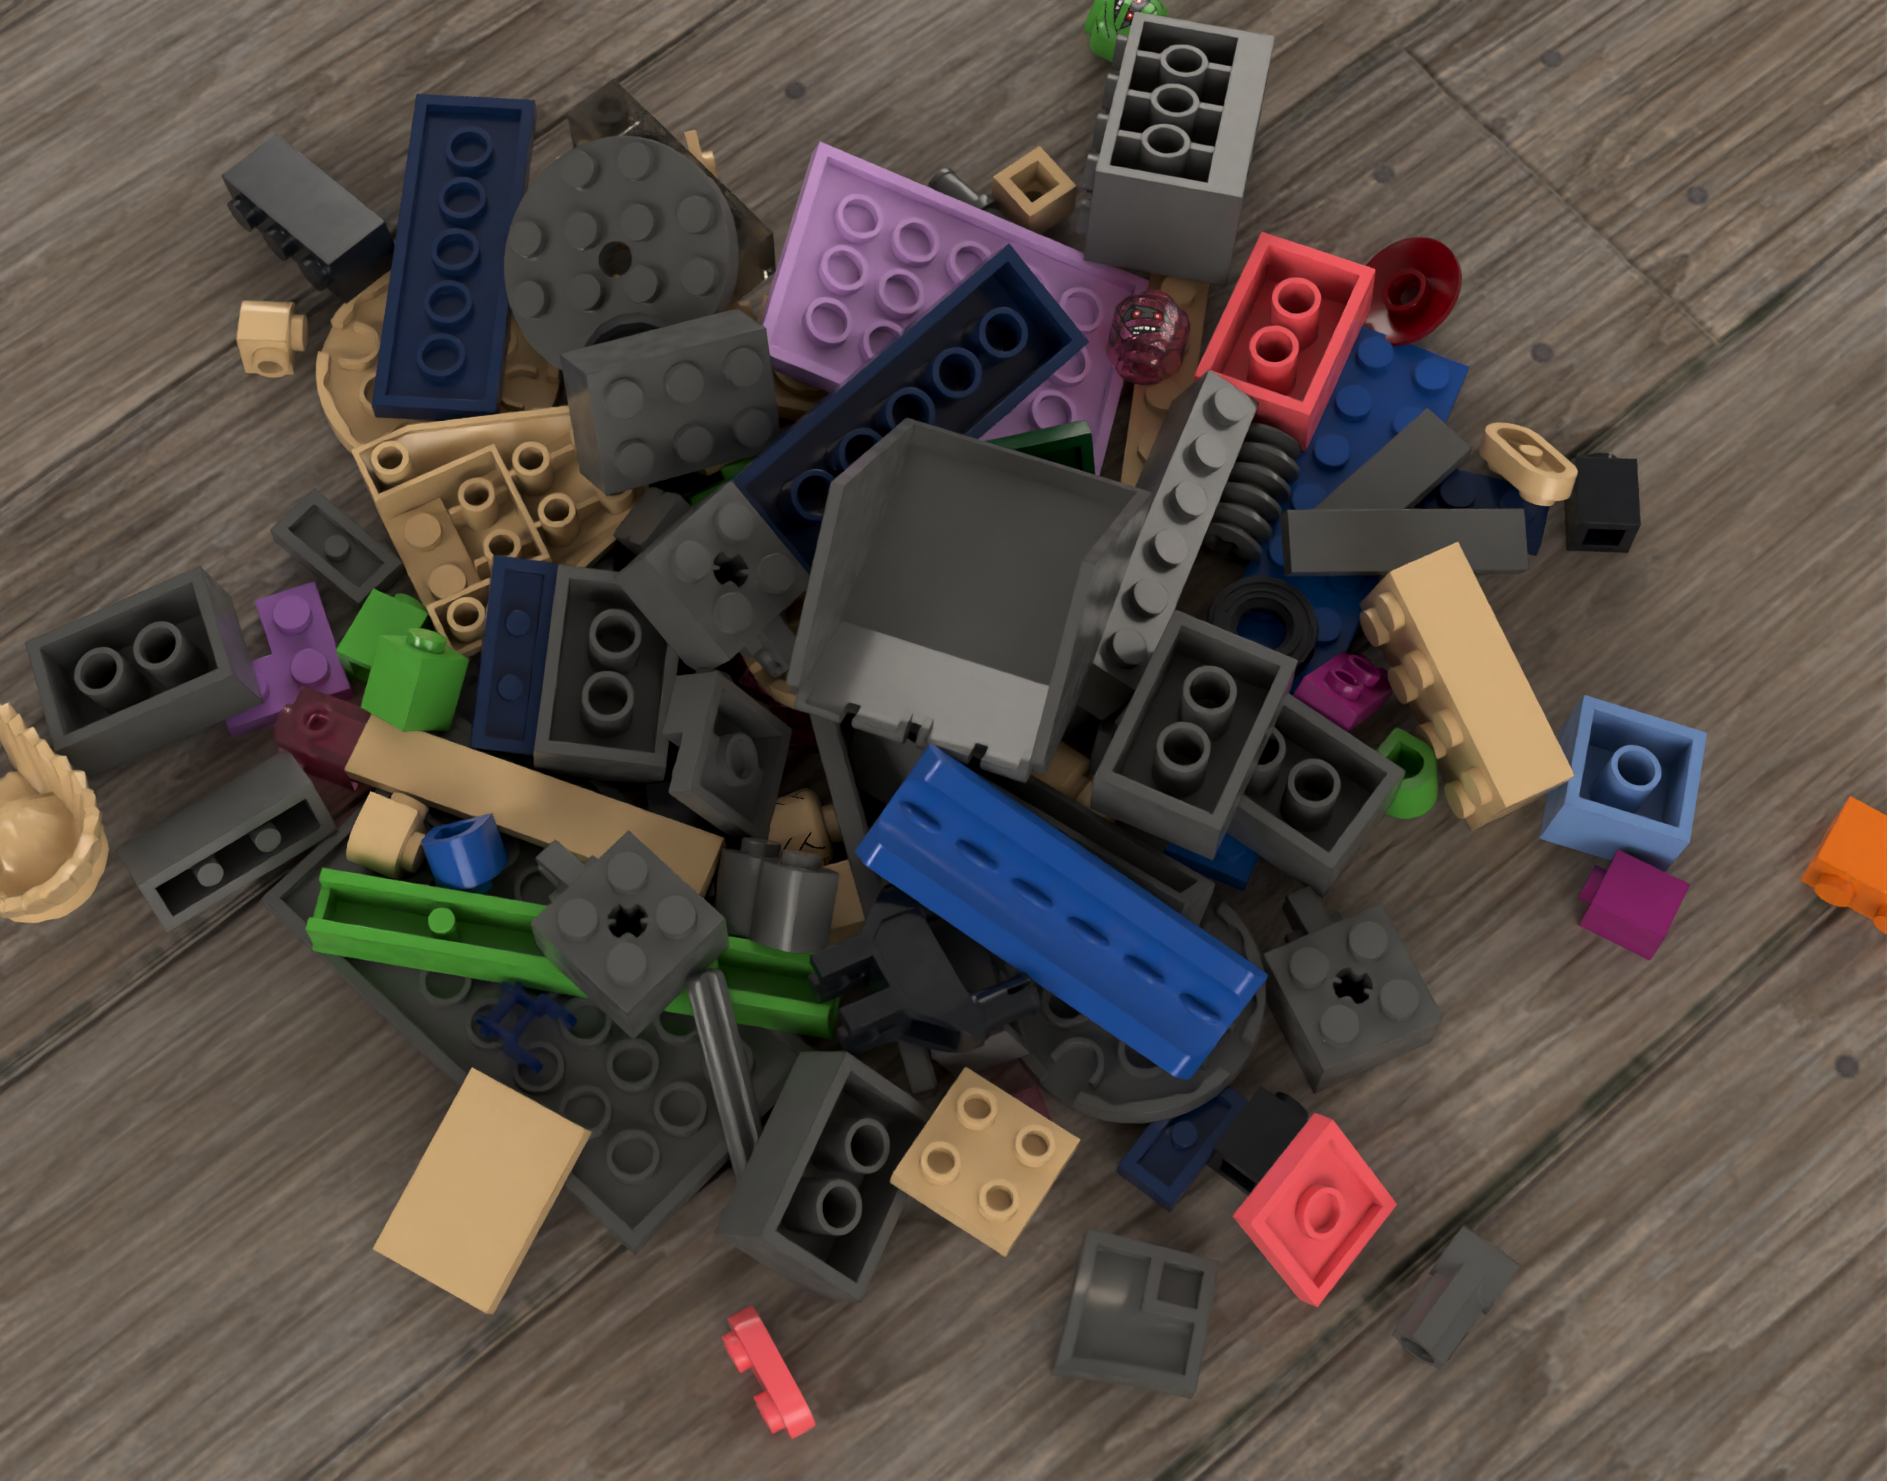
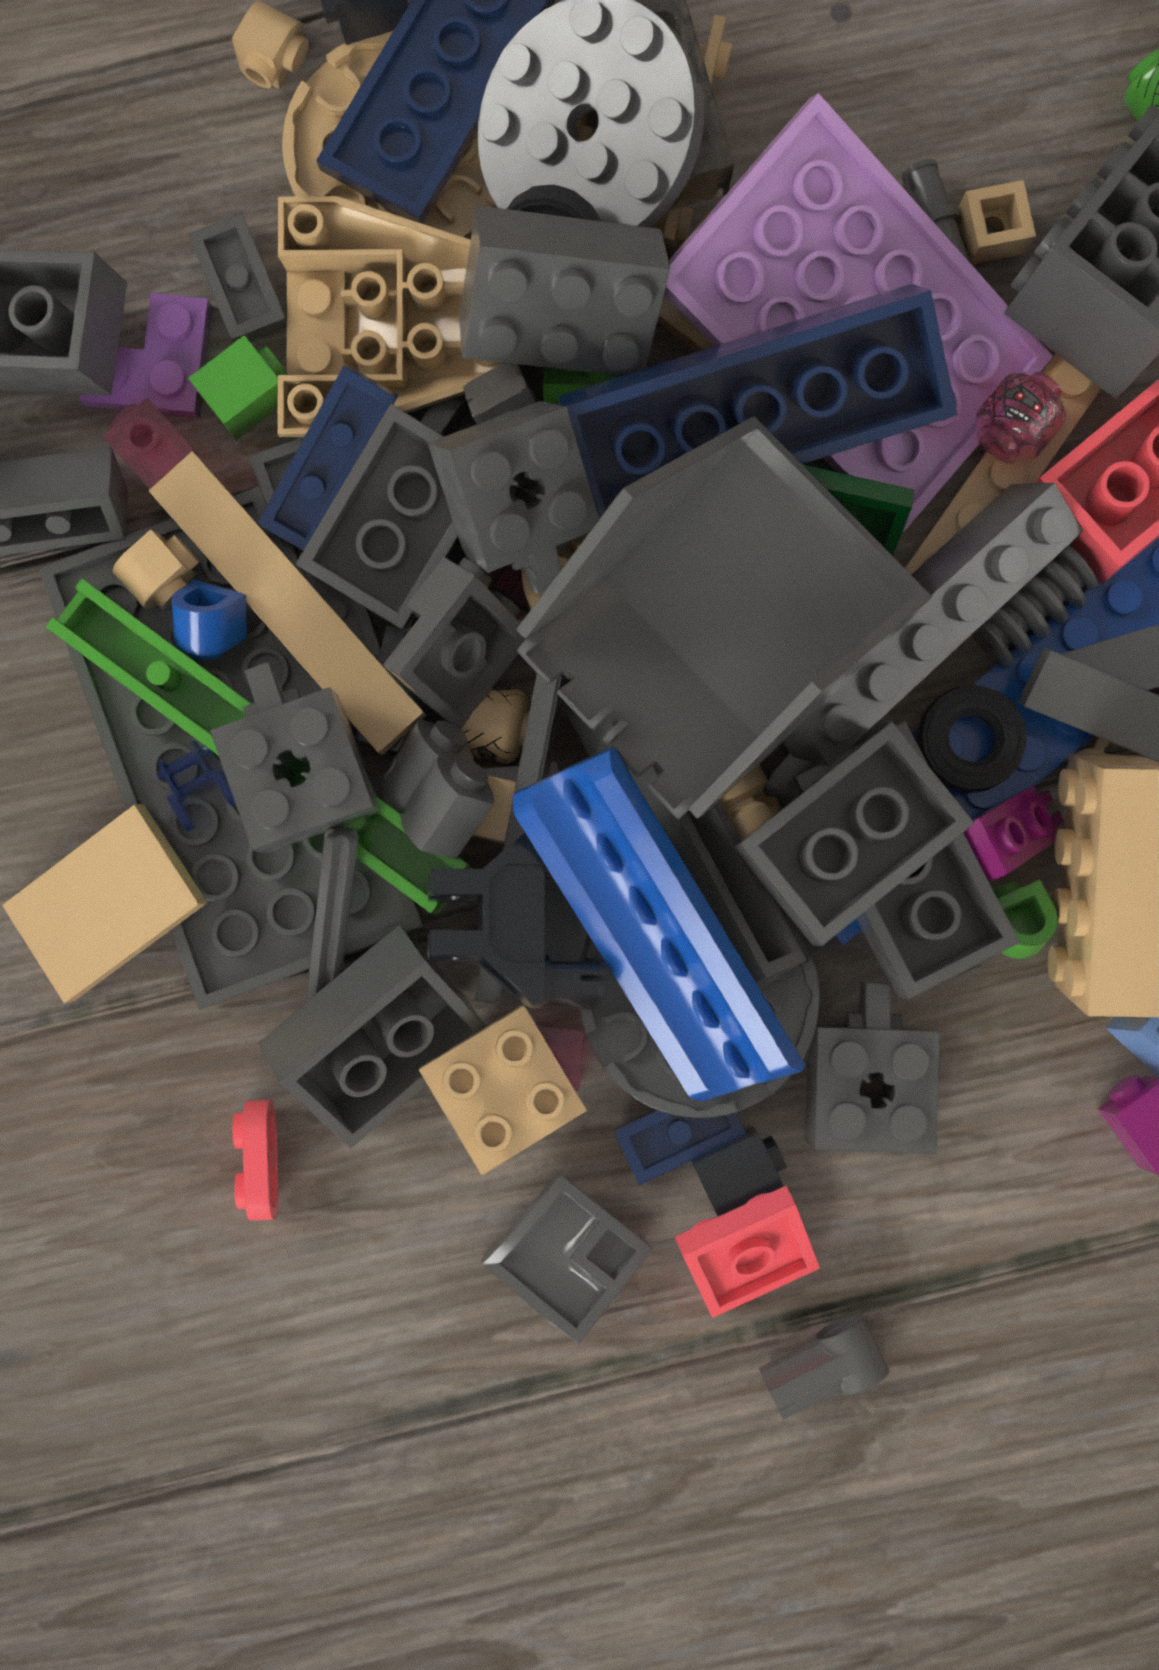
camera: 25 degrees right, 20 degrees up
(415, 681) = (237, 442): bright green brick -> none

